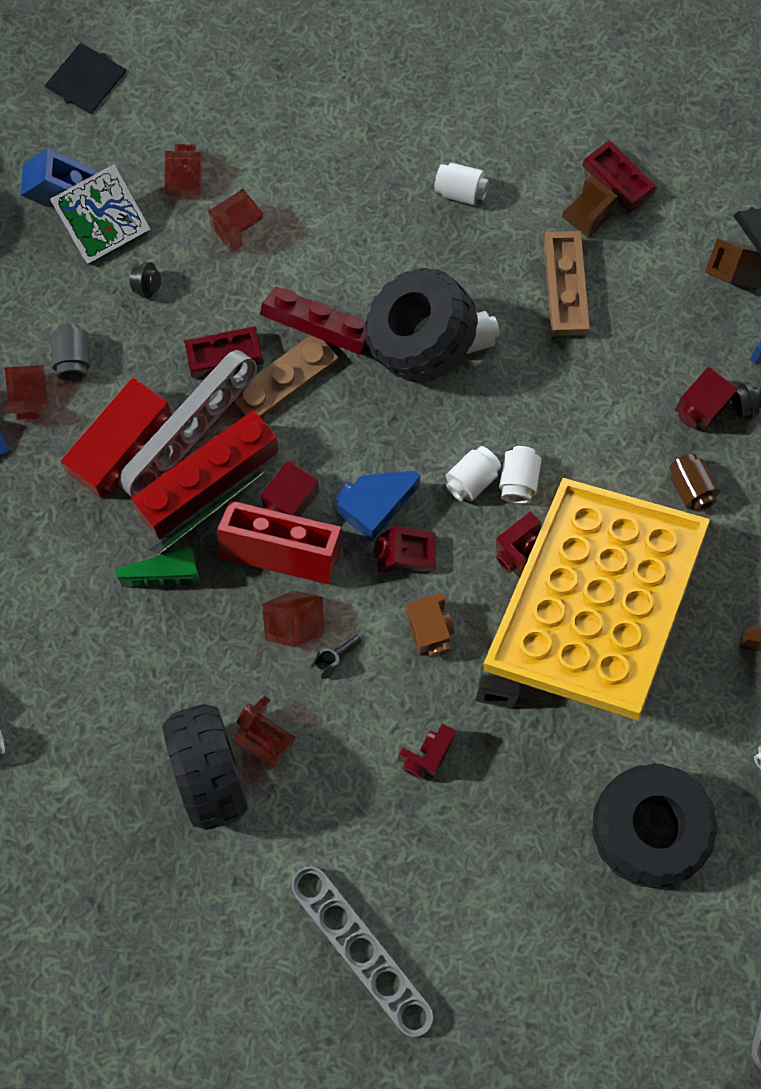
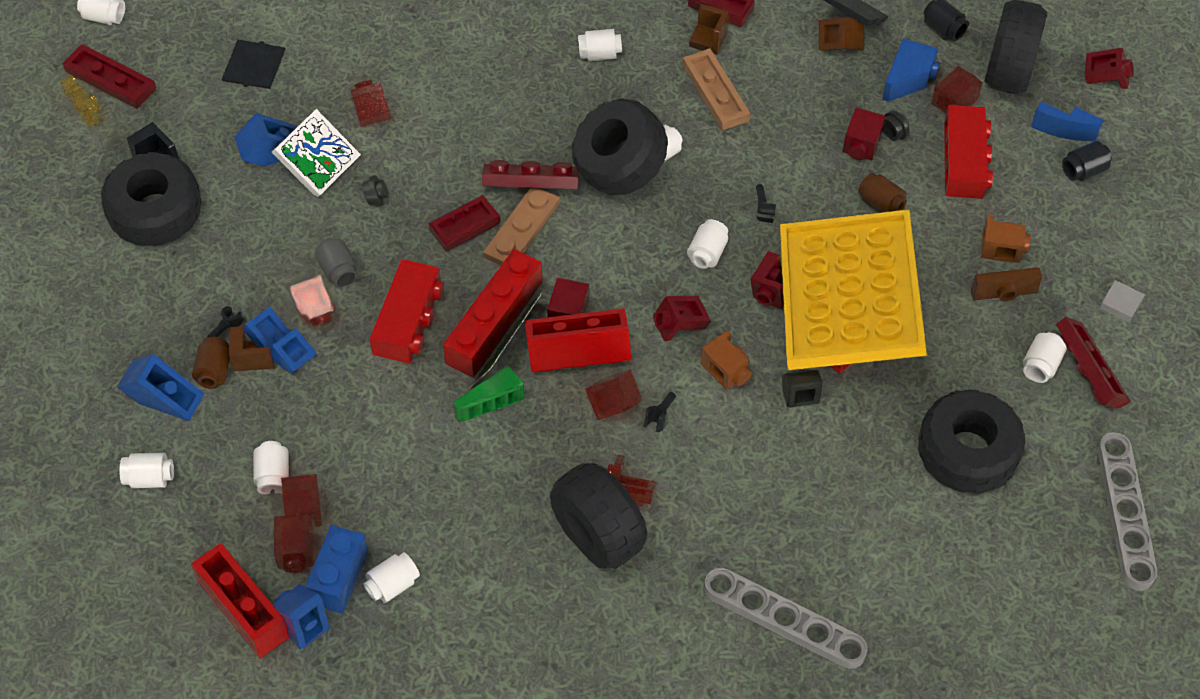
camera: 20 degrees left, 15 degrees down
(203, 416) = (461, 280): light grey beam -> none
(233, 218) = (427, 123): clear red panel -> none
(375, 500) = (640, 286): blue slope -> none
(434, 747) = (770, 460): dark red bracket -> none
(520, 475) = (745, 233): white brick -> none
(554, 449) = (763, 207): none -> black hand

